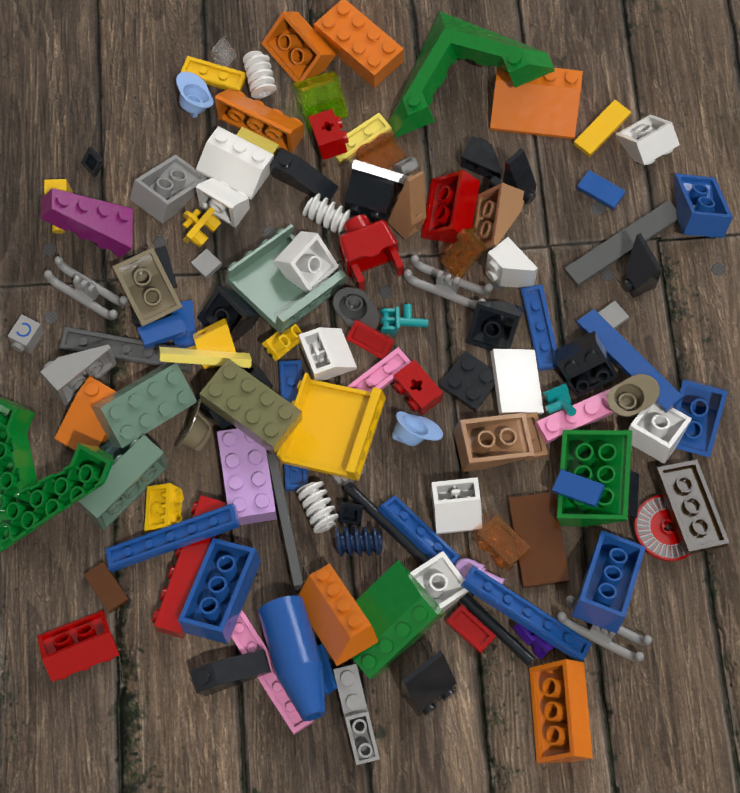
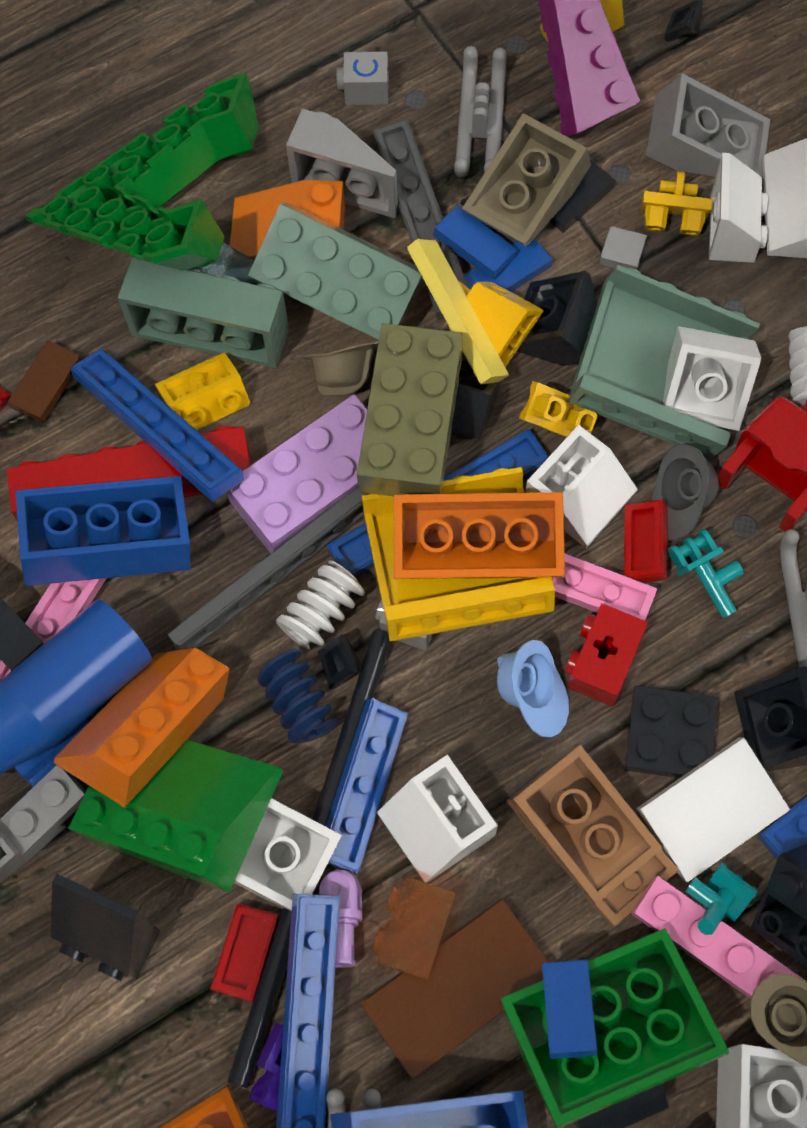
camera: 65 degrees right, 0 degrees up
(334, 410) = (479, 535): none -> orange slope

